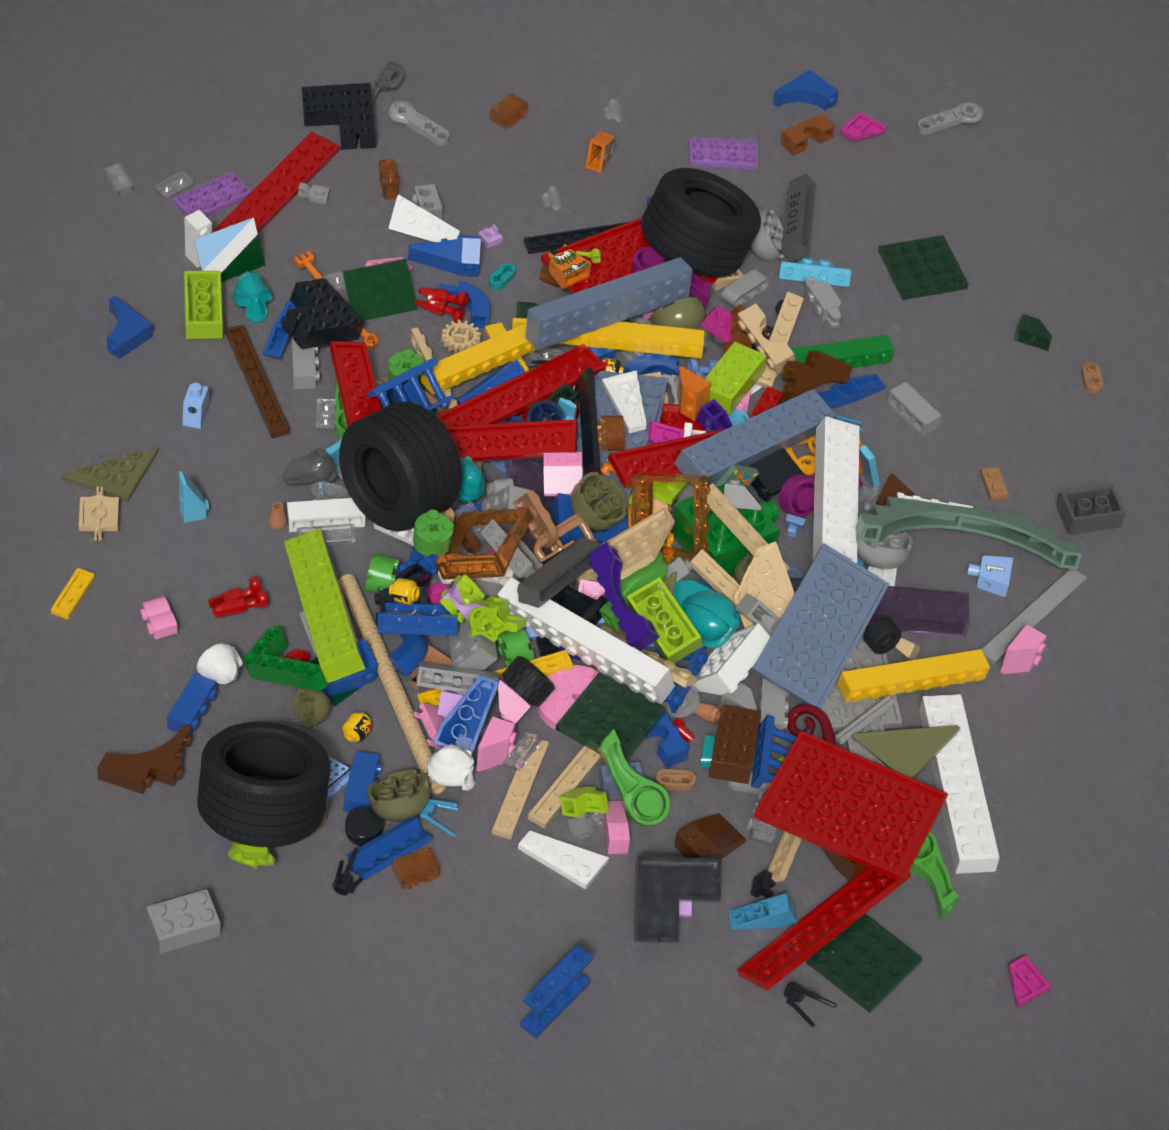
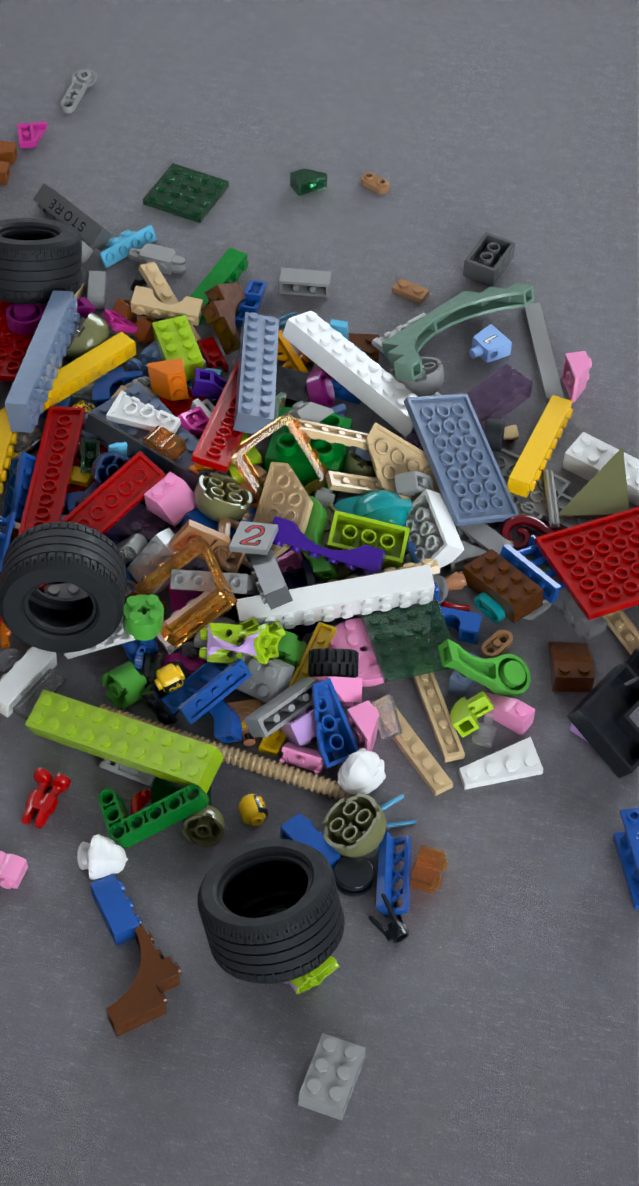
camera: 45 degrees left, 0 degrees up
(573, 545) = (253, 538): none -> light grey tile

